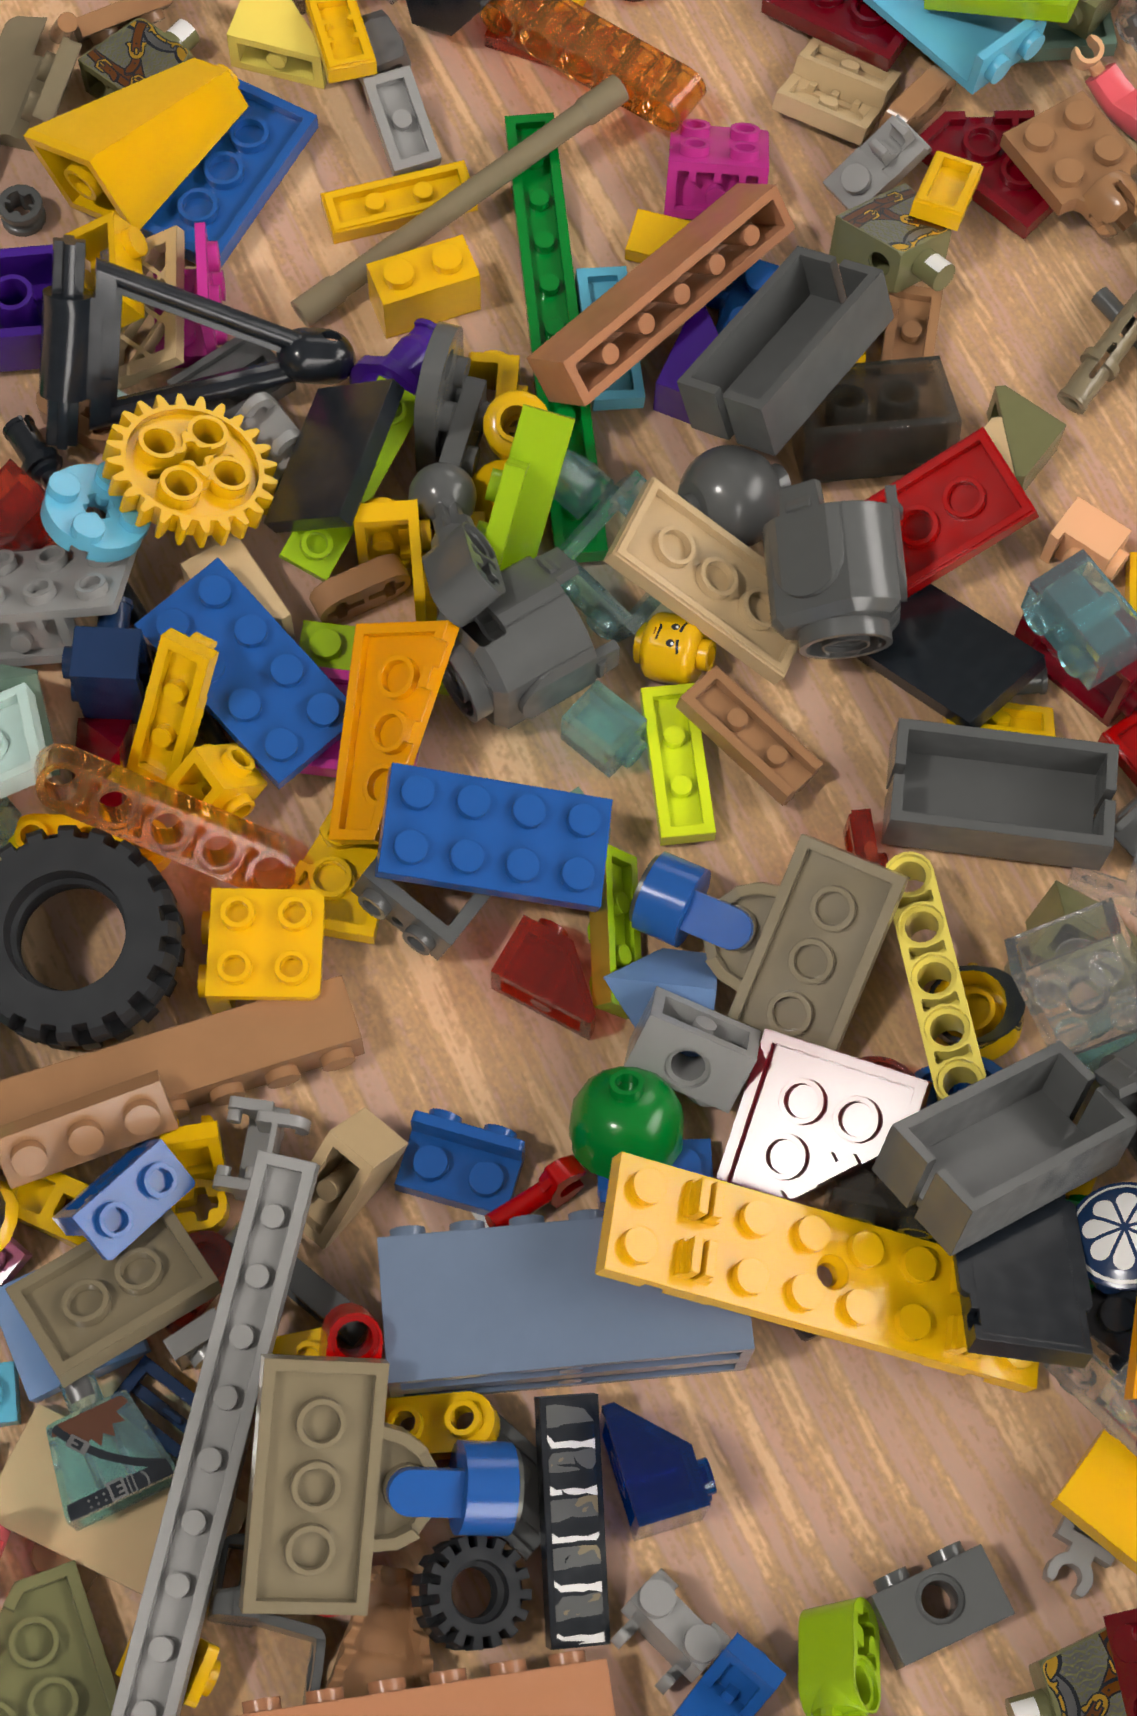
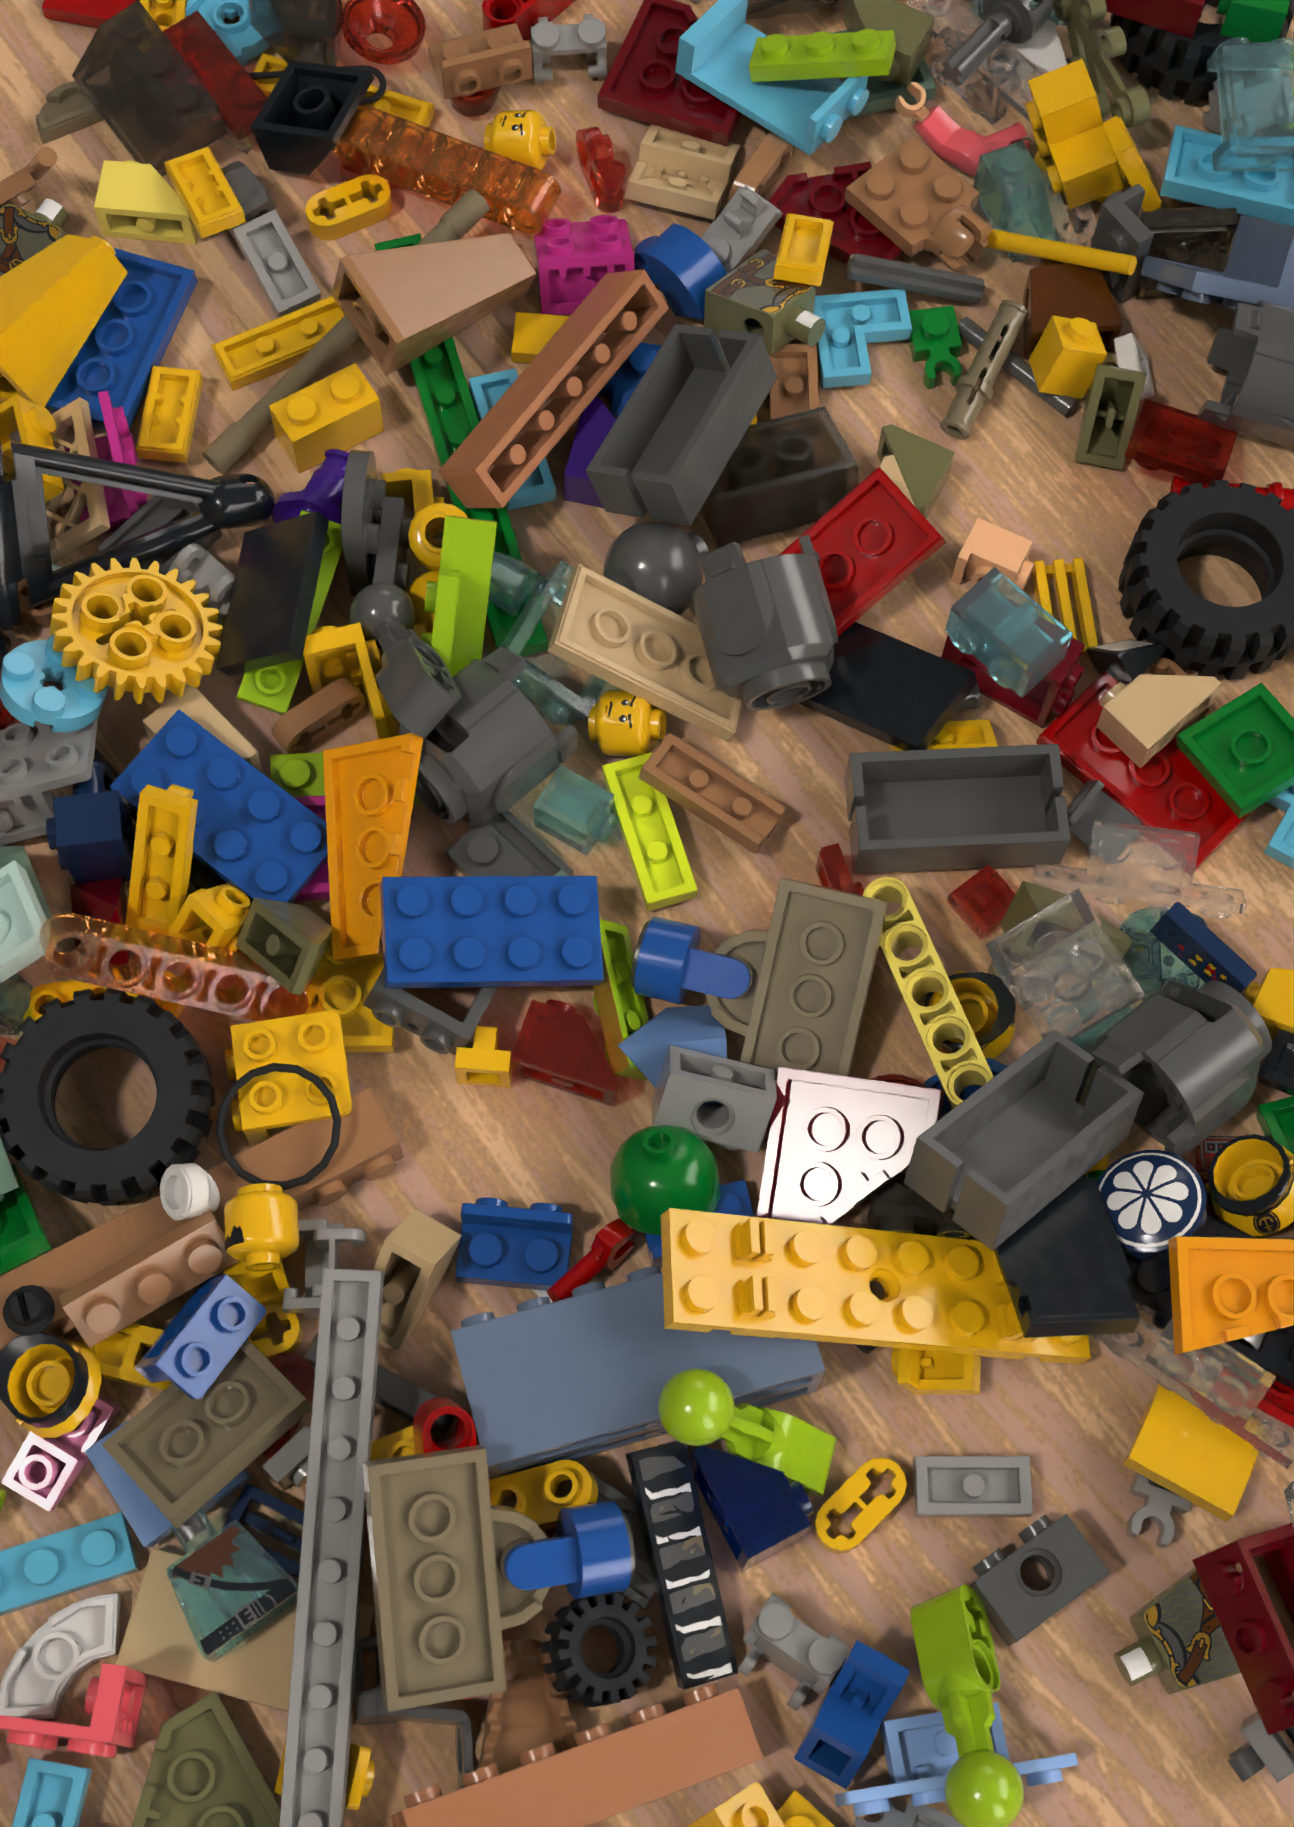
camera: 10 degrees left, 0 degrees up
(138, 1048) = (188, 1191): none -> white tile
(182, 1004) = (264, 1070): none -> black piece
(205, 1096) = (261, 1226): none -> yellow head
(265, 257) = (169, 414): none -> yellow plate
(282, 812) = (284, 941): none -> olive slope
(463, 971) = (484, 1062): none -> yellow tile
(486, 75) = (349, 207): none -> yellow beam
(524, 757) = (504, 849): none -> dark grey plate
(550, 174) = (427, 293): none -> medium nougat slope
(617, 1364) = (700, 1409): none -> lime beam
(675, 30) = (521, 137): none -> yellow head
(751, 74) = (602, 172): none -> clear red plate
(776, 1507) = (870, 1514): none -> yellow beam
(816, 189) = (681, 267): none -> blue brick
(873, 1372) = (936, 1372): none -> yellow bracket
(889, 1498) = (972, 1486): none -> light grey plate
(982, 275) = (852, 323): none -> medium azure plate
(1010, 895) = (982, 901): none -> clear red tile
(1058, 238) = (915, 278): none -> dark grey axle
(1068, 306) = (938, 341): none -> green plate

